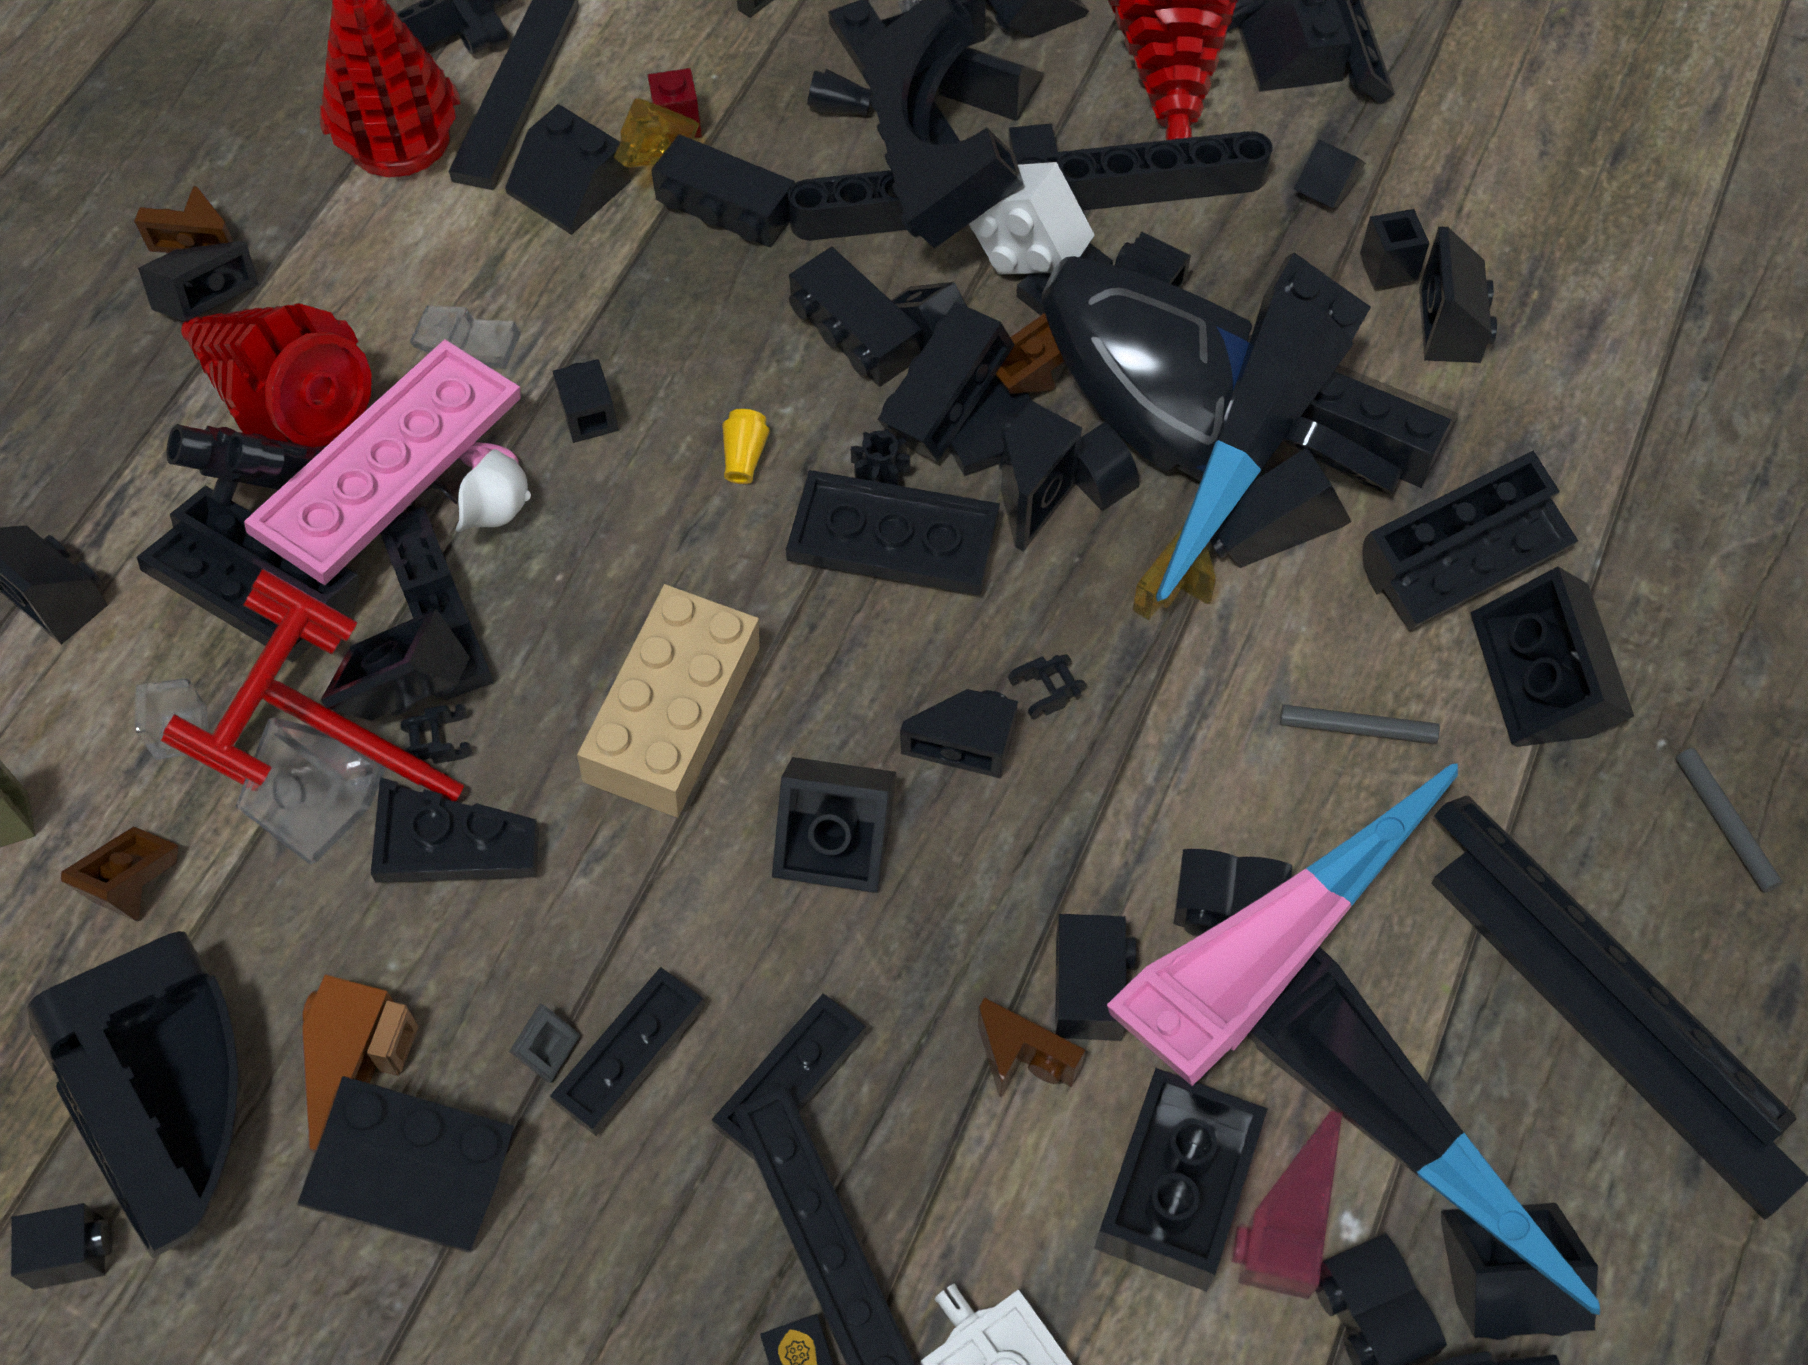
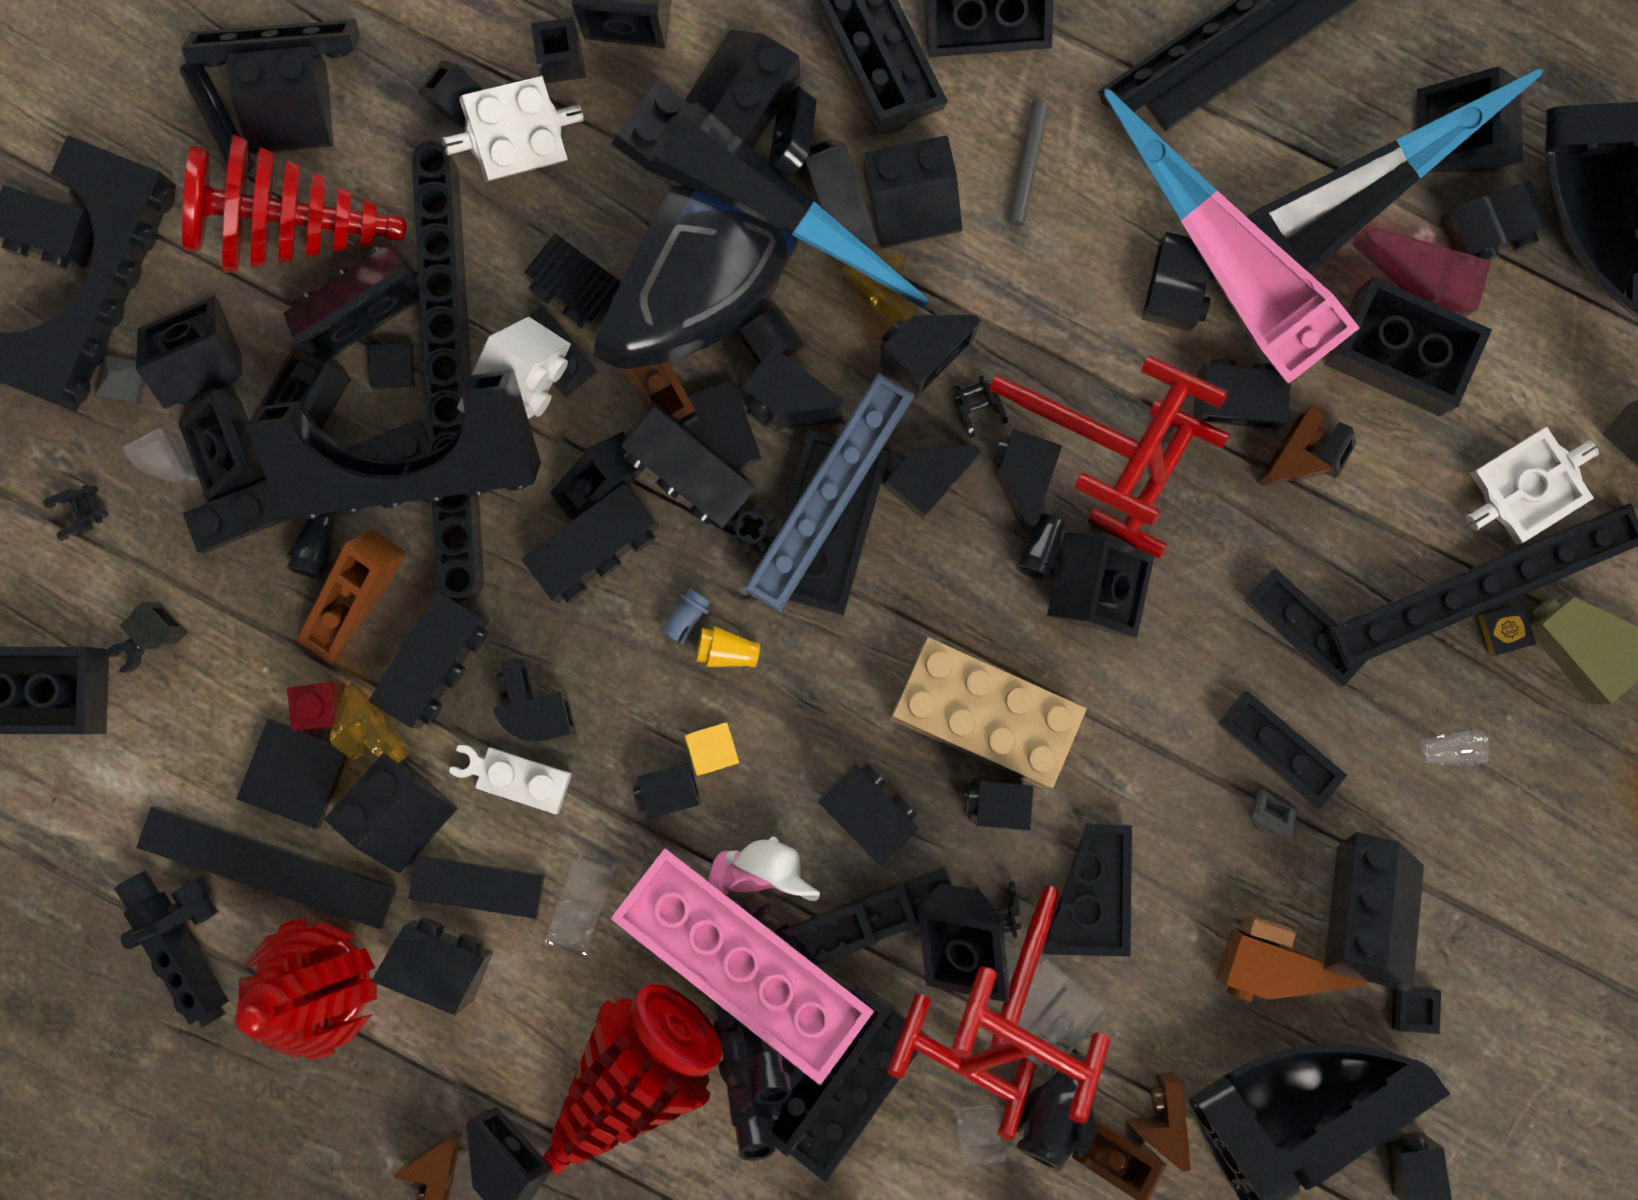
camera: 85 degrees left, 25 degrees up
(151, 916) = (1169, 1131): none -> reddish brown slope
(184, 800) = (1048, 1130): none -> black animal
(276, 1248) = (1416, 1010): none -> black tile
(403, 205) = (434, 966): none -> black slope
(488, 251) = (476, 886): none -> black tile
(553, 573) = (868, 813): none -> black brick
(559, 705) = (999, 804): none -> black brick
(602, 275) = (516, 778): none -> white plate
(604, 93) = (292, 774): none -> black tile
(628, 1284) = (1458, 748): none -> clear cone
(631, 439) = (712, 749): none -> yellow slope
(671, 272) = (527, 716): none -> black brick
(788, 411) = (686, 615): none -> sand blue pin
(799, 125) = (350, 593): none -> dark orange slope
(875, 750) = (1040, 550): none -> black cone
(928, 524) = (829, 492): none -> sand blue tile
(954, 629) = (927, 475): none -> black slope
(1000, 797) = (1140, 453): none -> red piece
(1030, 1100) = (1339, 448): none -> black tile
(1085, 98) = (353, 303): none -> black slope
(1101, 603) = (925, 347): none -> black slope
(1299, 595) = (913, 191): none -> black slope
(1300, 213) = (512, 128): none -> white plate

